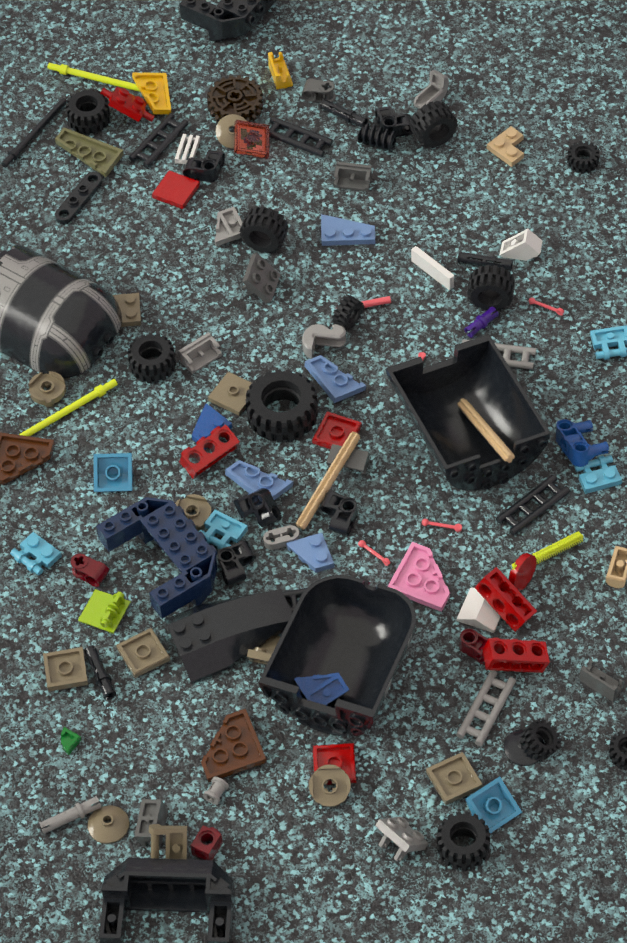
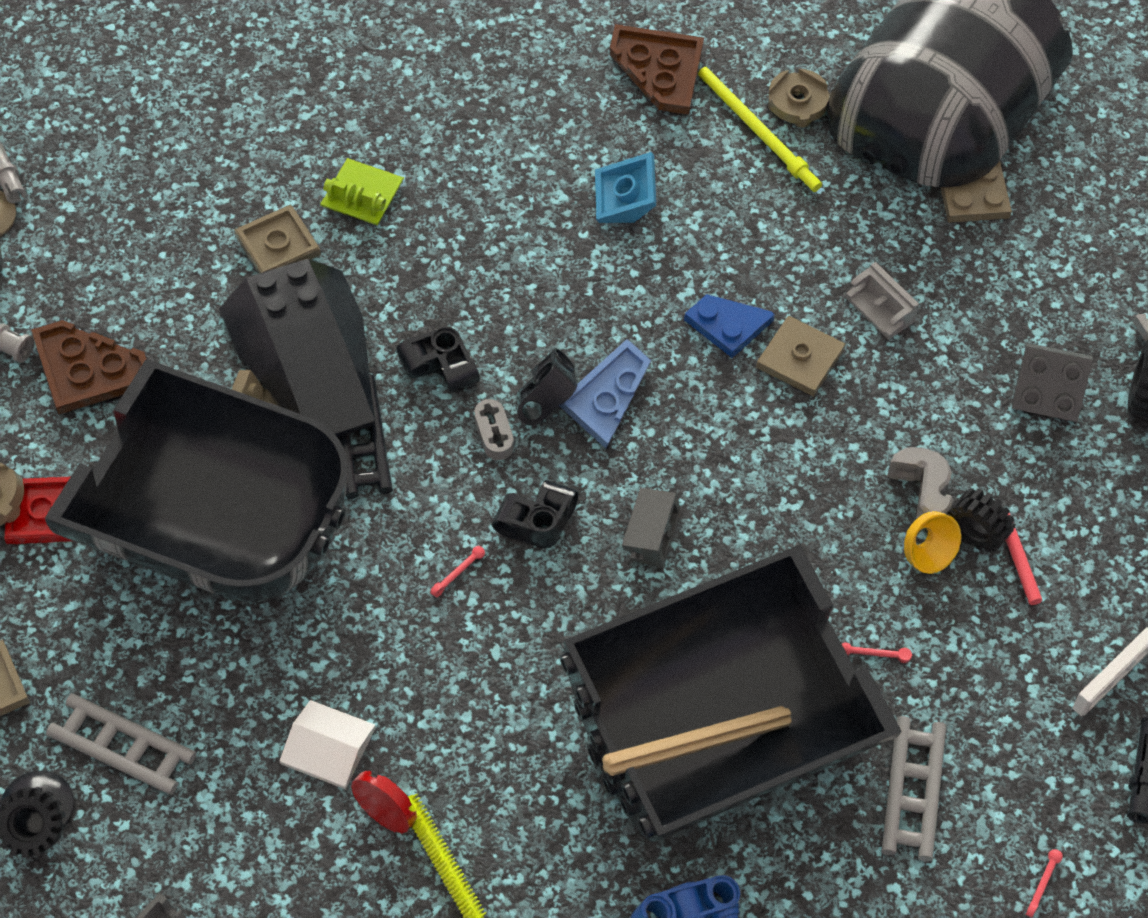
camera: 85 degrees right, 5 degrees up
(40, 550) = (481, 107): medium azure plate -> none
(65, 669) = (256, 145): dark tan plate -> none
(69, 740) = (134, 159): green tile -> none
(89, 569) = (435, 163): dark red piece -> none
(102, 679) = (232, 192): black pin -> none
(153, 369) = (866, 209): black tyre -> none
(178, 539) = (454, 268): dark blue wedge -> none
(201, 508) = (551, 315): dark tan plate -> none
(205, 459) = (671, 329): red brick -> none
(225, 526) = (513, 349): medium azure plate -> none
(281, 386) = (770, 382): black tyre -> none
(313, 552) = (462, 477): medium blue wing -> none
(322, 688) = (168, 478): blue wing -> none
(327, 480) = (602, 490): tan axle -> none
(333, 381) = (835, 504): medium blue wing -> none
(335, 430) = (719, 514): red tile -> none
(357, 337) = (940, 545): none -> yellow piece
(421, 578) = (394, 640): bright pink plate -> none
(457, 527) = (509, 706): coral hinge -> none
(473, 648) = (237, 733): dark red piece -> none
(481, 322) = (989, 757): dark purple pin -> none
(491, 287) = (1057, 764): black tyre -> none
(505, 599) = (319, 768): red brick -> none
(515, 655) = (191, 769): red brick -> none
(532, 515) = (554, 861): black bar -> none

